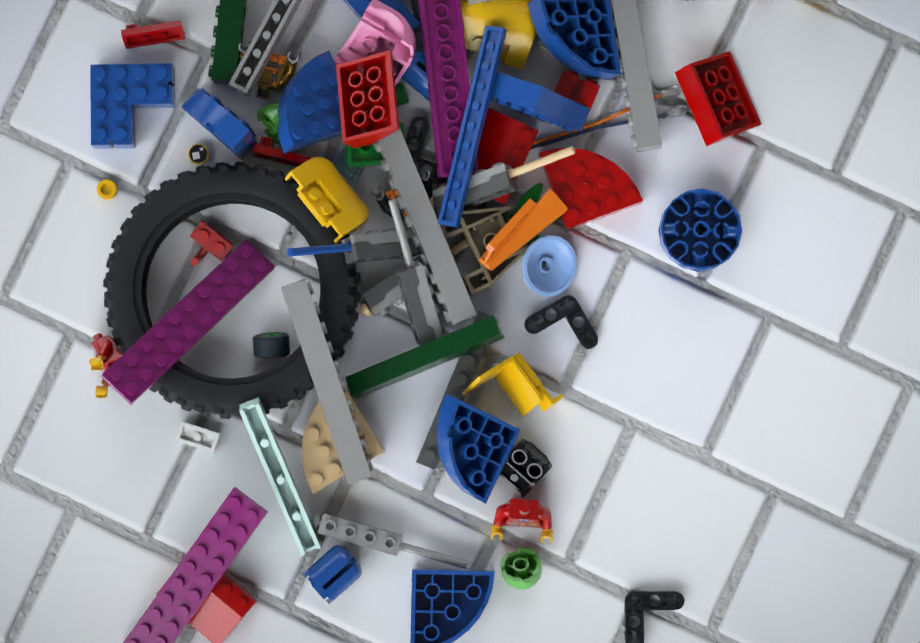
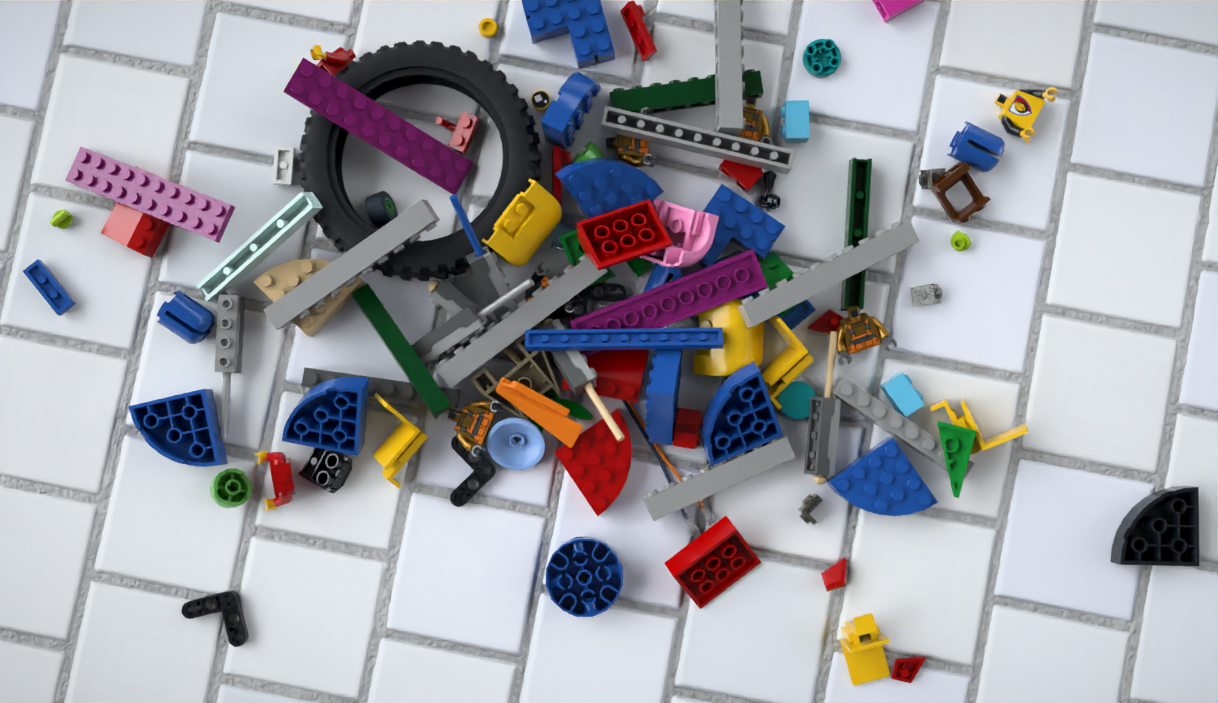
camera: 80 degrees right, 0 degrees up
(518, 302) = (474, 423): none -> torso

